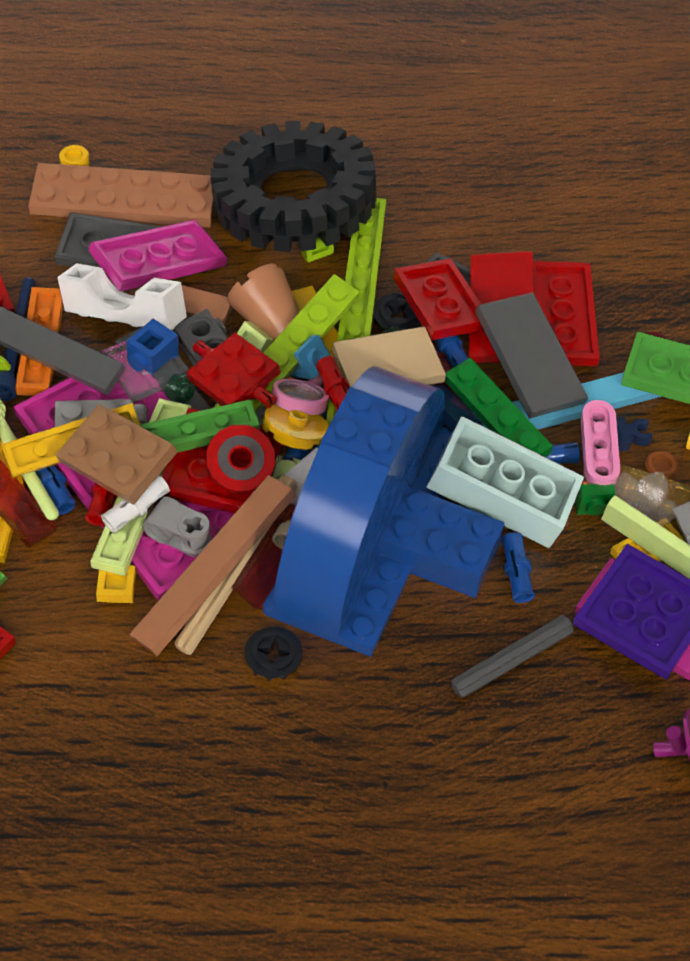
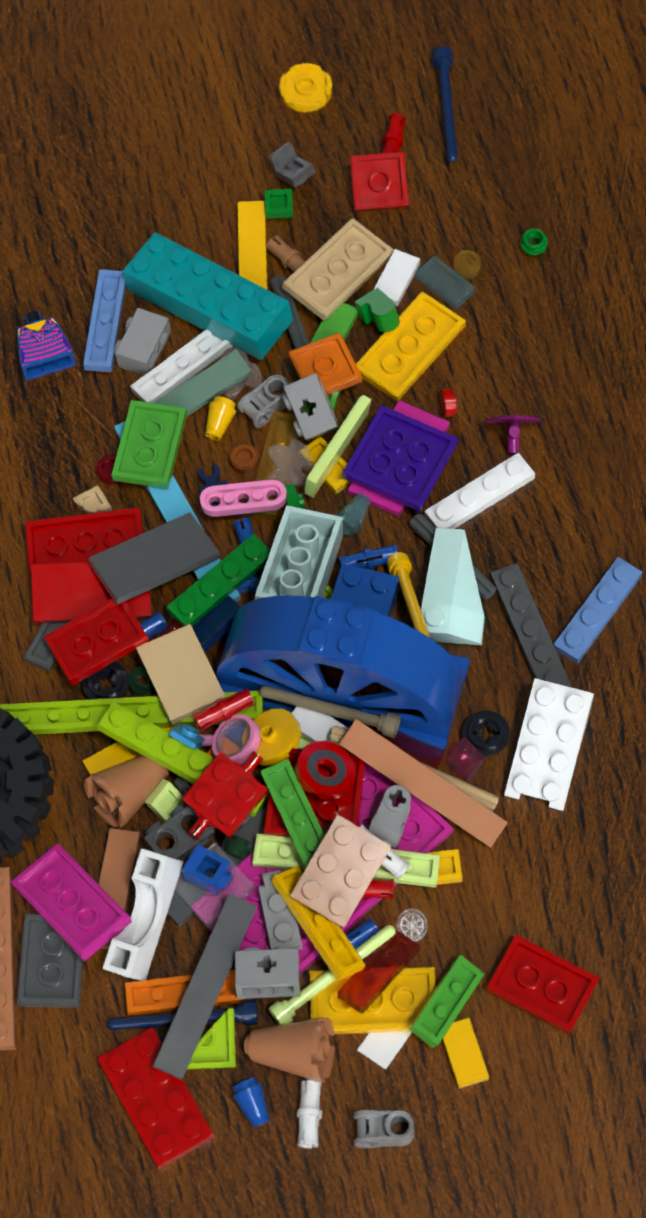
camera: 90 degrees left, 10 degrees up
(30, 390) = (281, 980): none -> light grey brick
(60, 546) = (412, 924): none -> clear tile
(242, 624) = (465, 759): none -> clear pink plate
(247, 711) = (549, 743): none -> white piece
(381, 729) = (528, 625): none -> dark grey plate
(421, 809) = (597, 610): none -> medium blue plate
(447, 632) = (451, 591): none -> light aqua wedge
(501, 594) = (400, 565): none -> yellow piece
(577, 558) = (354, 514): none -> clear light blue cone
(598, 702) = (480, 493): none -> white plate
(614, 328) = (92, 501): none -> tan tile

